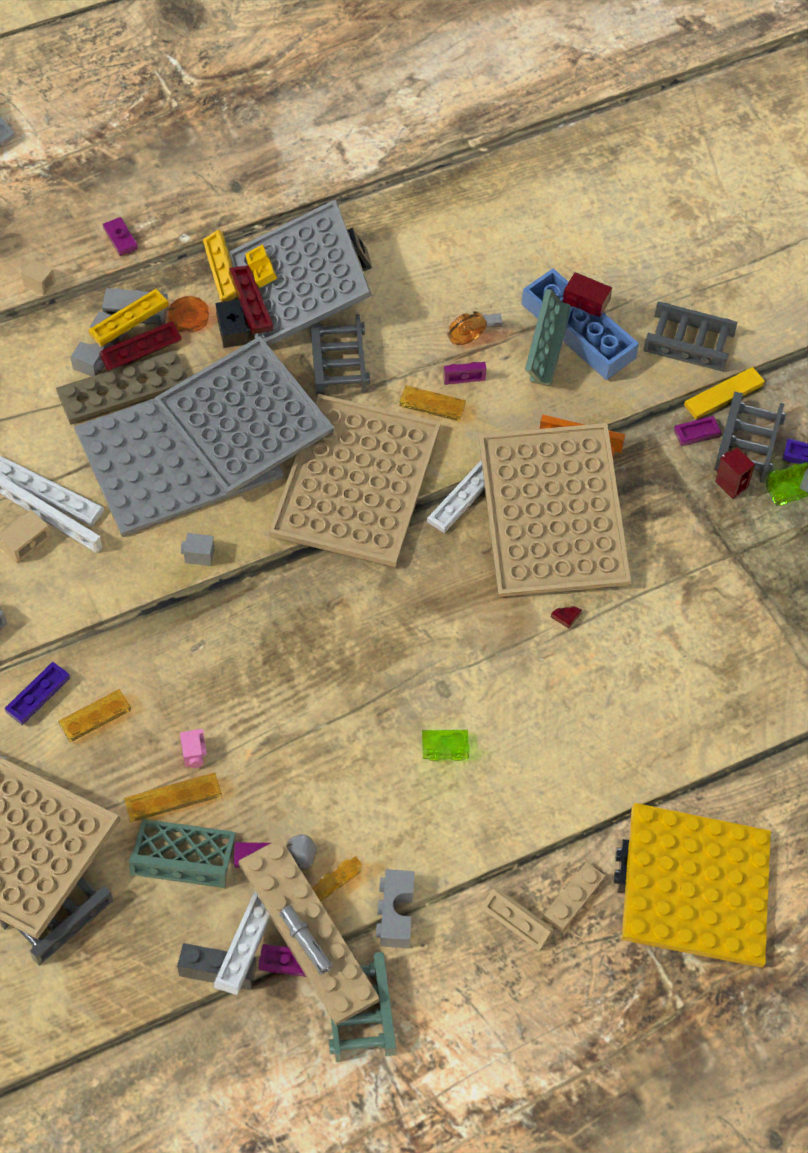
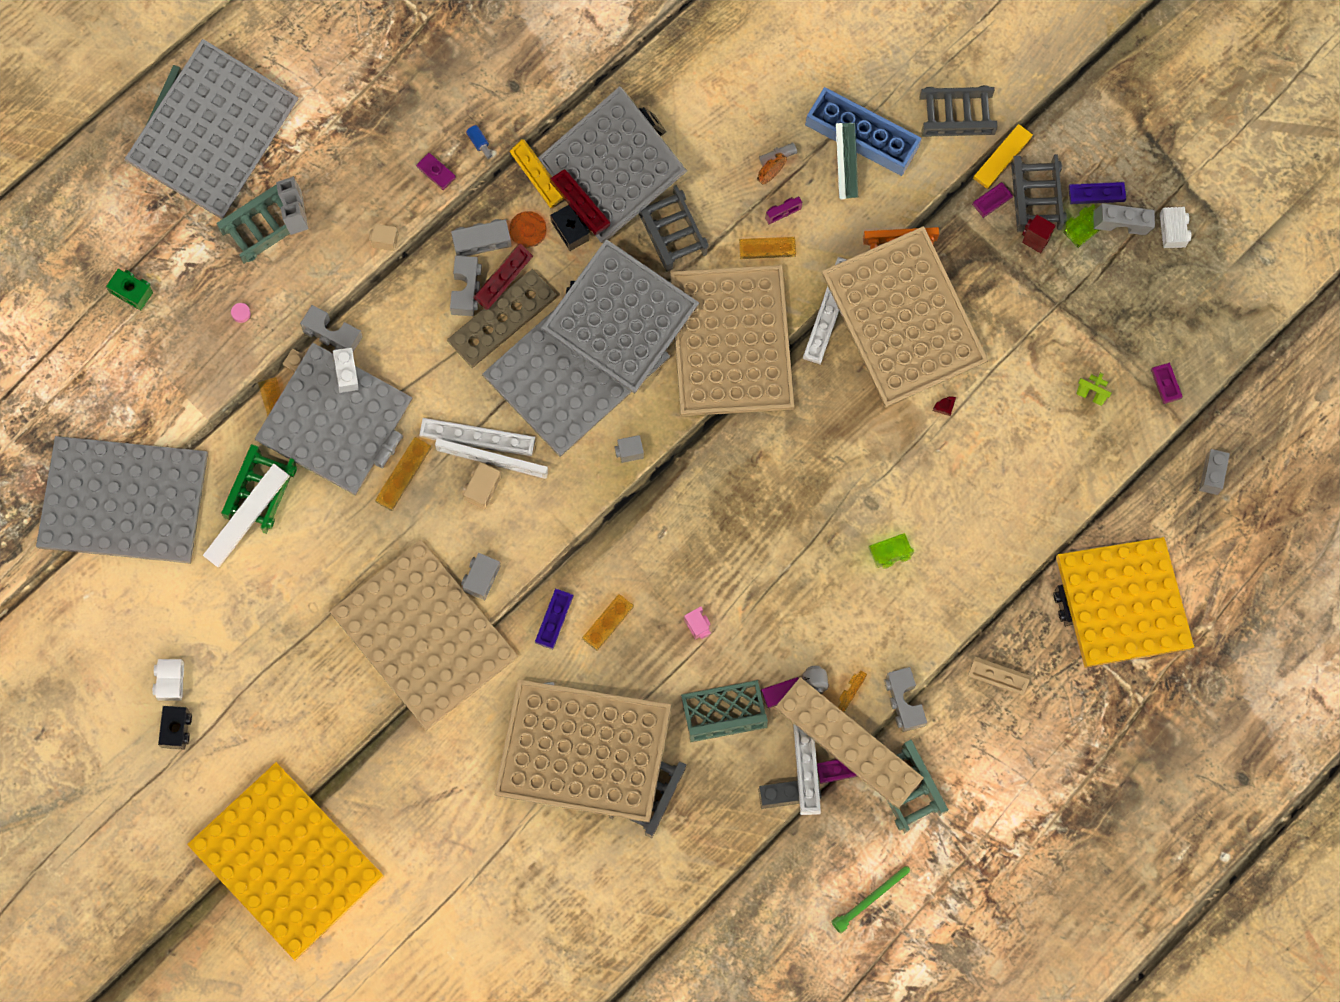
camera: 20 degrees left, 15 degrees up
(128, 317) = (483, 254): yellow tile -> none
(172, 797) = (698, 669): clear yellow plate -> none
(176, 220) = (479, 140): none -> blue piece
(216, 1138) = (841, 923): none -> bright green piece
(261, 266) = (575, 166): yellow slope -> none
(300, 931) = (853, 753): light grey pin -> none
(574, 897) = (1034, 642): tan plate -> none
(587, 294) = (864, 107): dark red brick -> none
(749, 655) = (1085, 386): none -> lime hips

